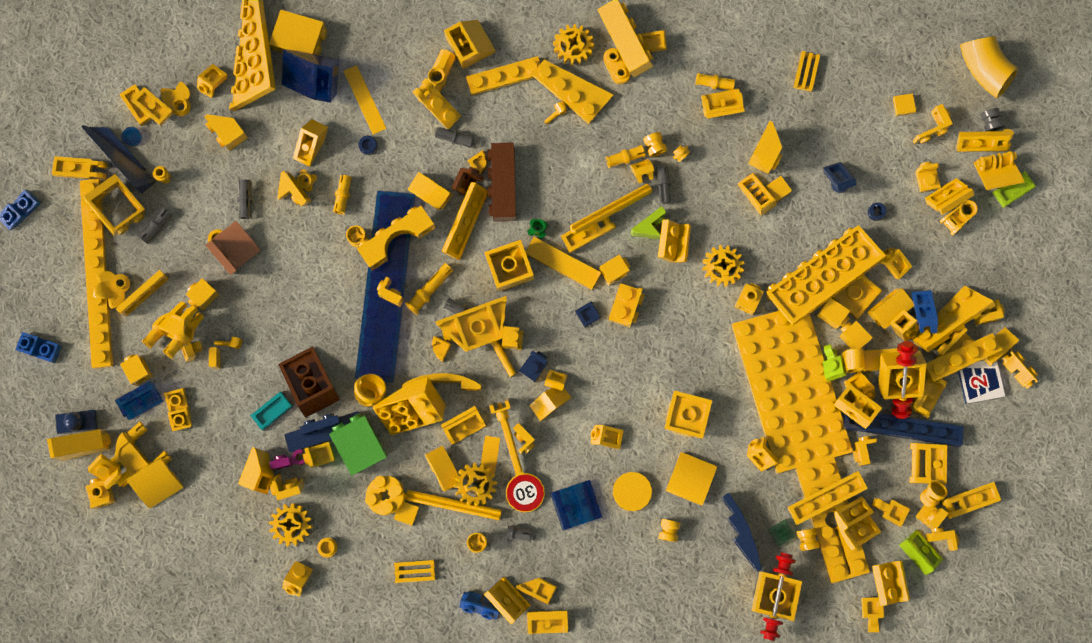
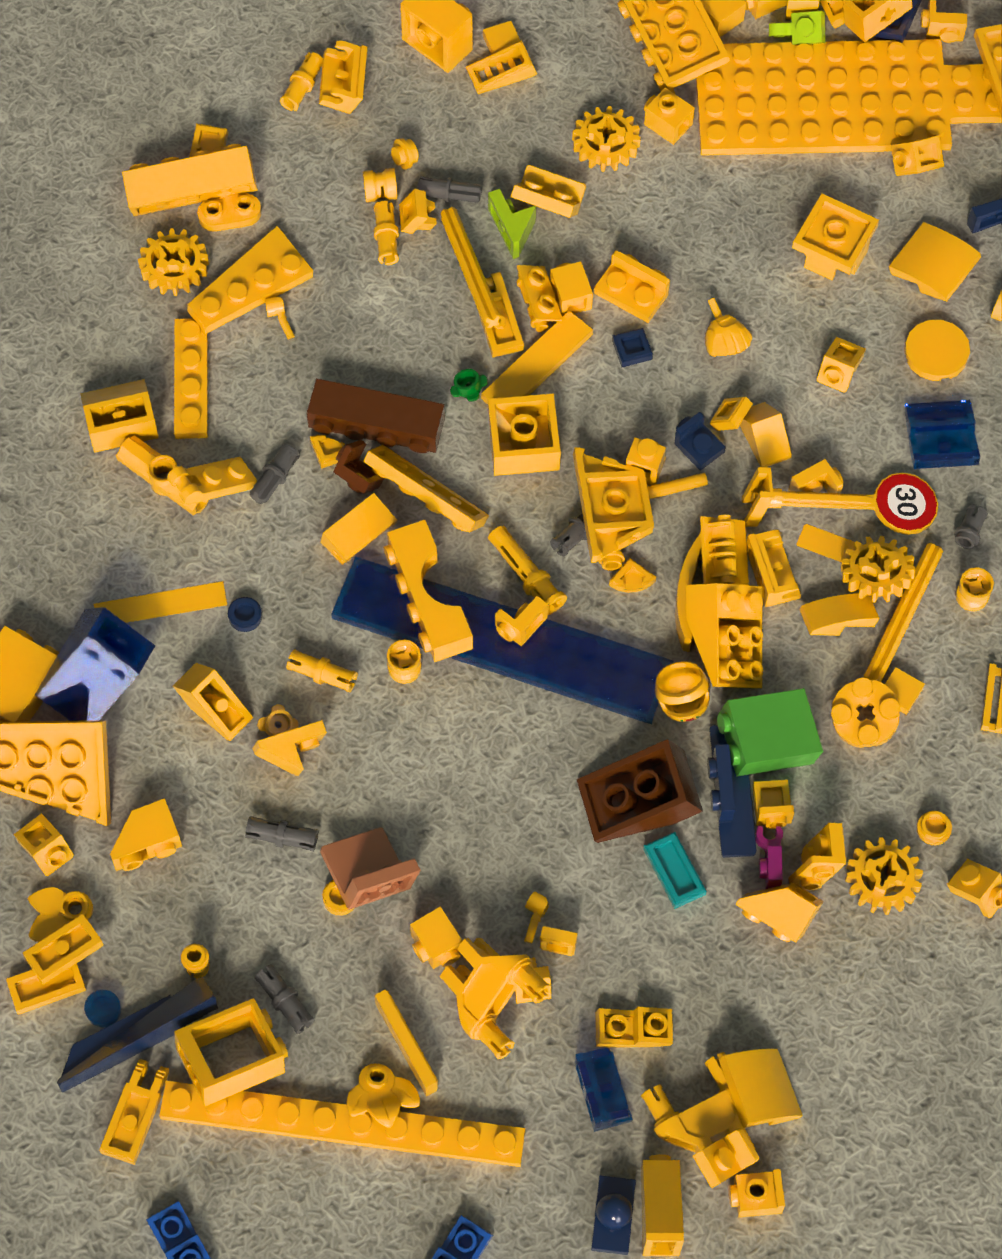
camera: 80 degrees left, 15 degrees down
(136, 369) = (544, 1082): yellow brick -> none
(459, 394) = (724, 550): none -> yellow hinge
(604, 252) = (539, 295): none -> yellow hinge
(609, 366) = (725, 334): none -> yellow piece

